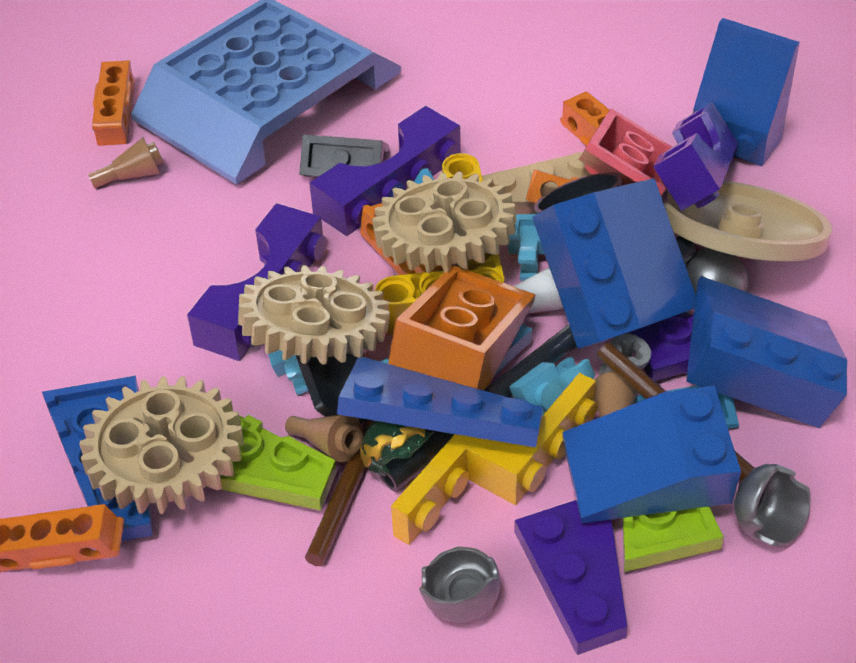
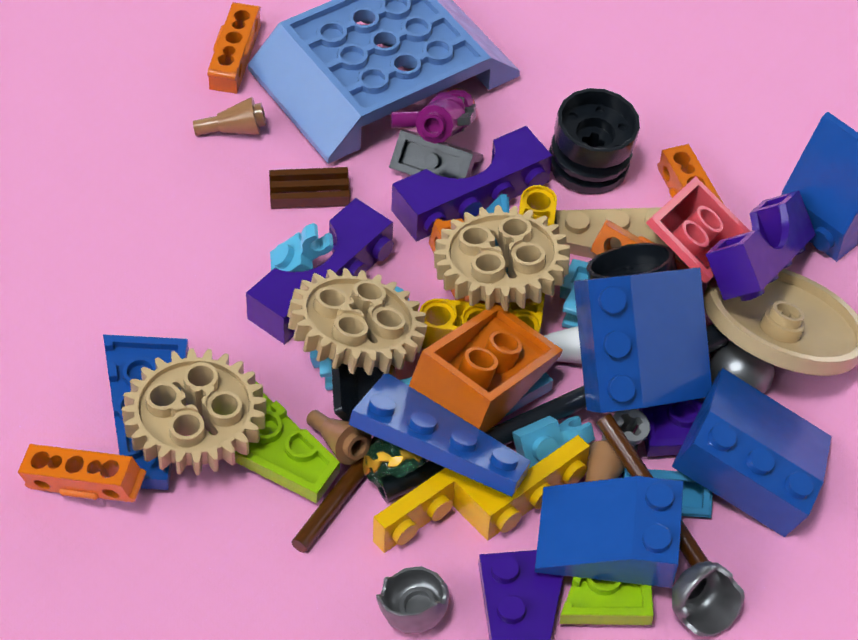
camera: 10 degrees right, 5 degrees up
(223, 209) = (306, 185): none -> reddish brown tile
(234, 262) = (300, 250): none -> medium azure plate
(337, 116) = (441, 118): none -> magenta piece
(496, 104) = (593, 140): none -> black wheel

